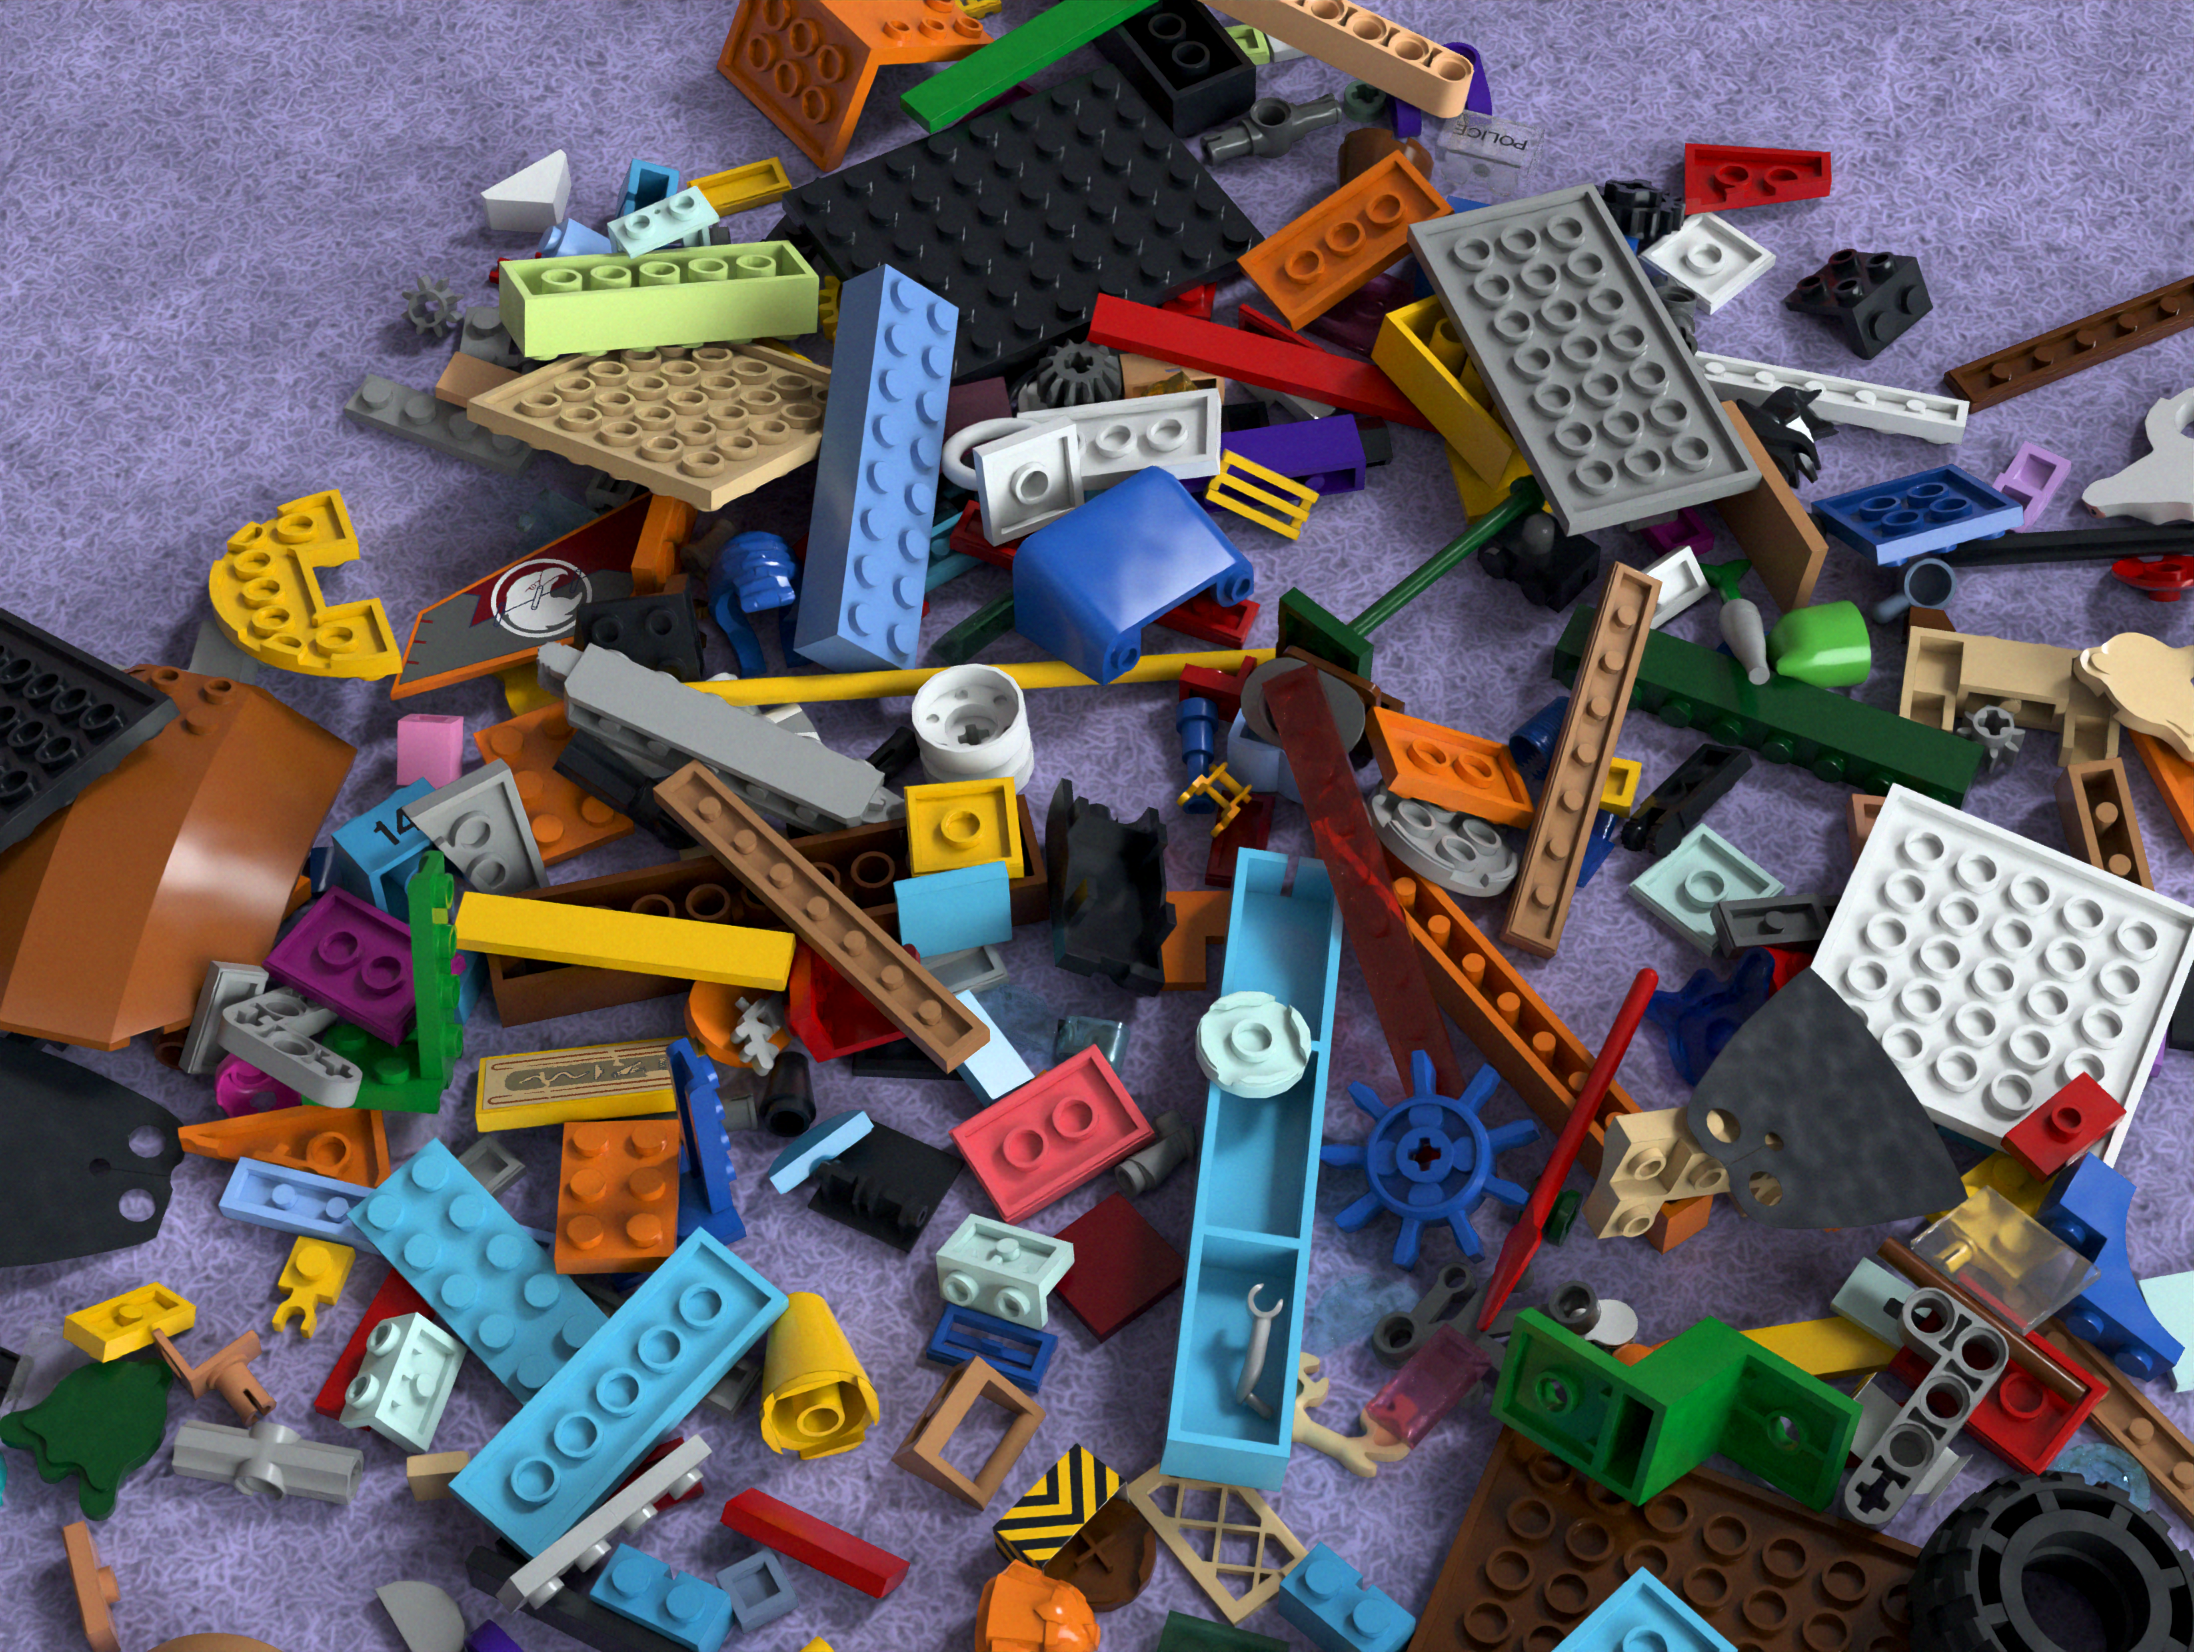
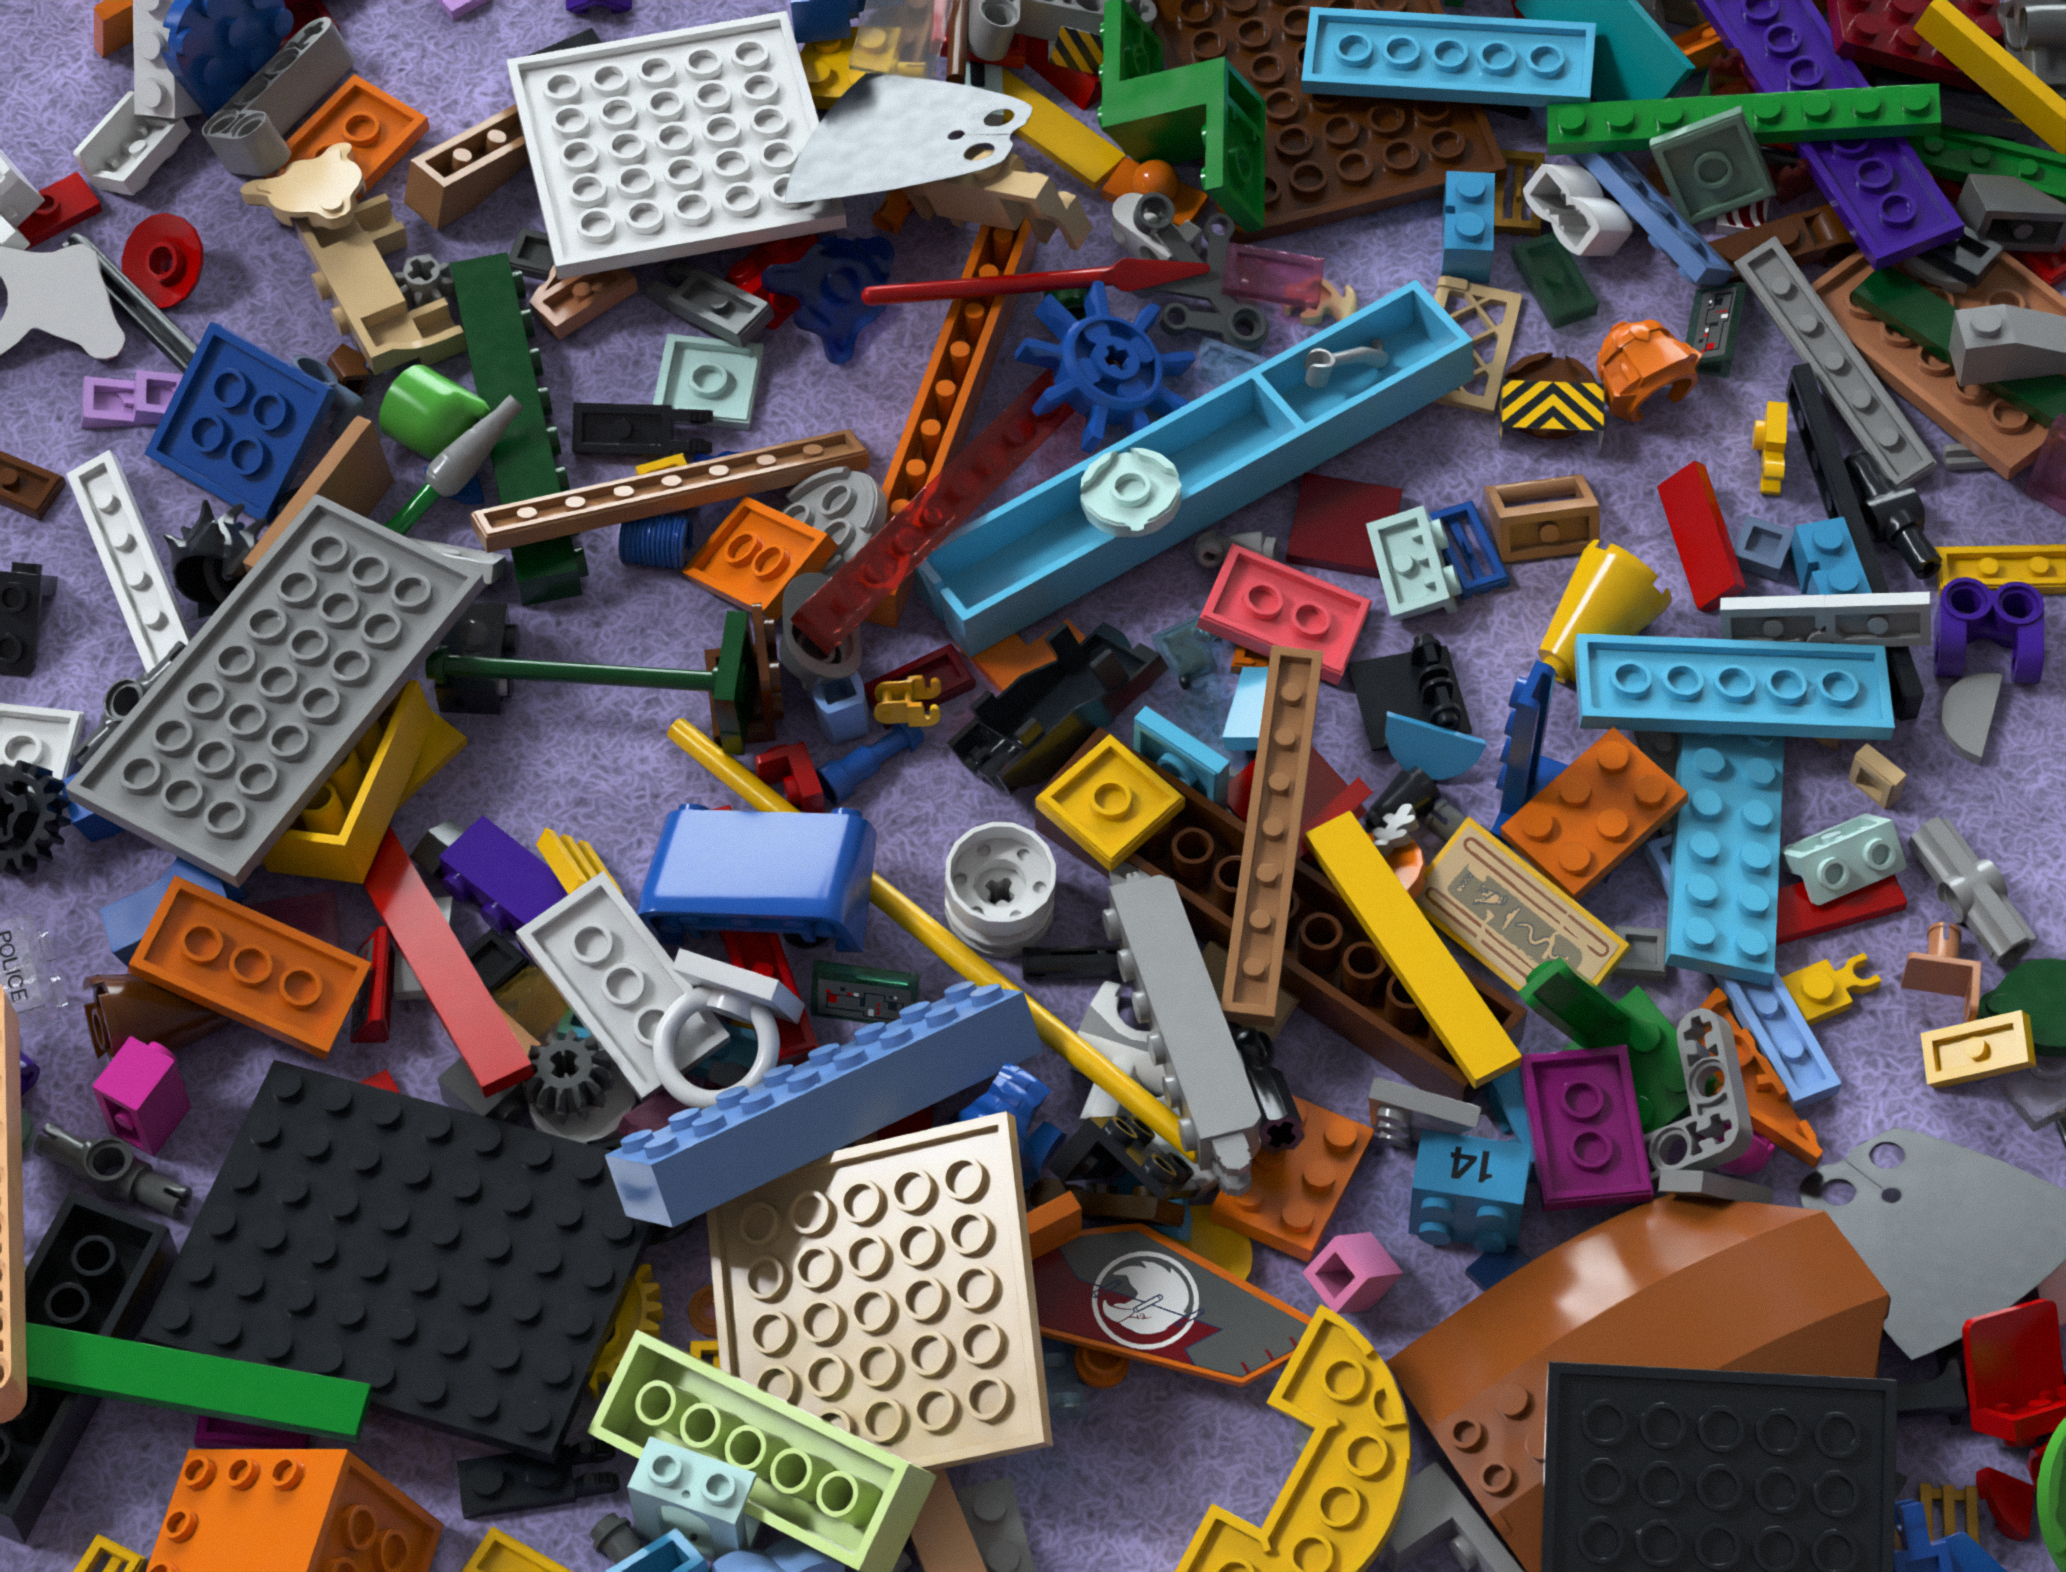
camera: 130 degrees left, 5 degrees up
(1304, 150) = (142, 1095): none -> dark pink brick
(2063, 1128) = (770, 41): red plate -> none

